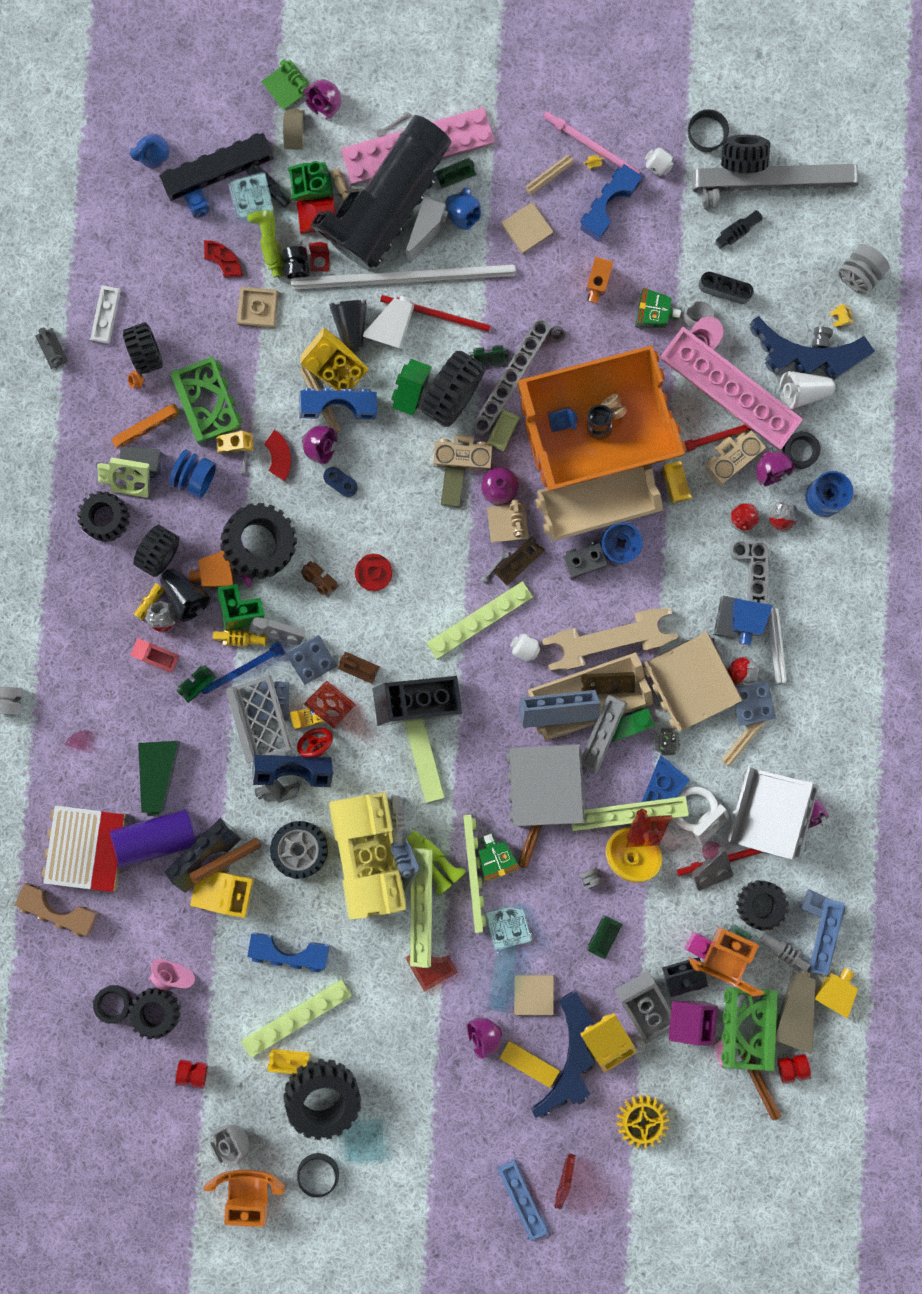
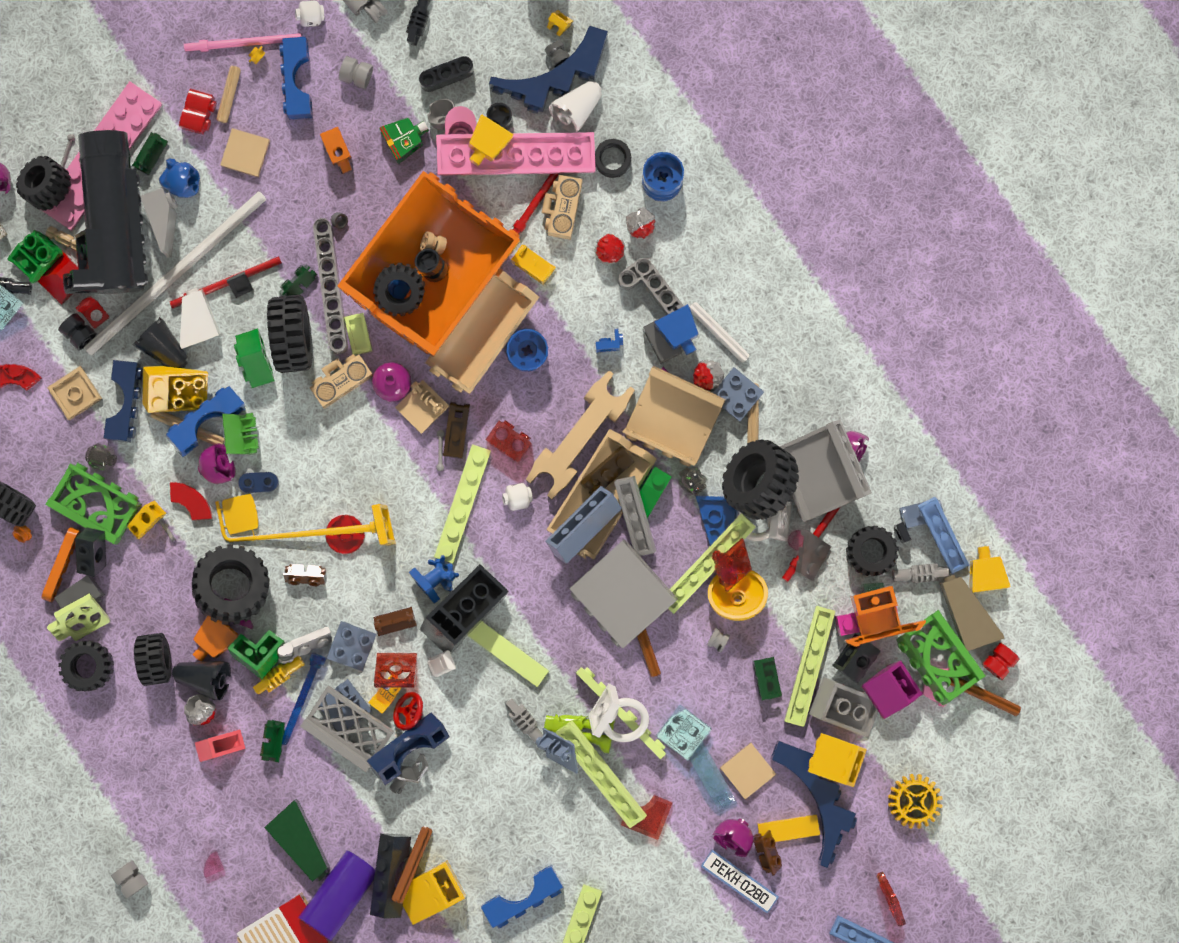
camera: 35 degrees left, 0 degrees up
(150, 599) = (178, 706): yellow pin -> none
(174, 434) = (90, 552): none -> black brick
(192, 474) = (127, 573): blue wheel -> none
(238, 369) = (101, 457): none -> clear smoke head
(269, 246) = (44, 335): lime piece -> none
(272, 358) = (120, 426): none -> dark blue arch
(287, 860) = (464, 824): wheel -> none
(307, 497) = (241, 516): none -> yellow piece
(354, 433) = (238, 434): none -> bright green hinge
(359, 132) = (43, 183): none -> black tyre
(364, 840) = (530, 774): light yellow cylinder -> none
(368, 727) = (441, 664): none -> white tile
(414, 658) = (434, 578): none -> blue piece
(444, 323) = (240, 284): none -> black tile
(452, 486) = (353, 413): olive tile -> none
(460, 1073) = (739, 881): none -> tile
(464, 863) = (606, 711): none -> white tile
(496, 859) = (630, 683): green torso -> none
(497, 1076) = (770, 860): none -> reddish brown hinge
(516, 169) = (197, 112): none -> red brick
(547, 602) = (506, 445): none -> clear red brick
(550, 432) = (395, 305): none -> black tyre
(584, 560) = (509, 387): dark grey brick -> none
(644, 953) = (809, 666): none -> yellowish green plate
(658, 232) = (355, 72): none -> light grey wheel
(684, 587) = (607, 345): none -> blue bracket
(719, 361) = (488, 140): none -> yellow torso
(722, 799) = (773, 490): none -> black tyre
(740, 352) = (500, 114): none -> black wheel
(773, 467) = (601, 191): magenta cylinder -> none
(796, 909) = (902, 532): none -> black tile

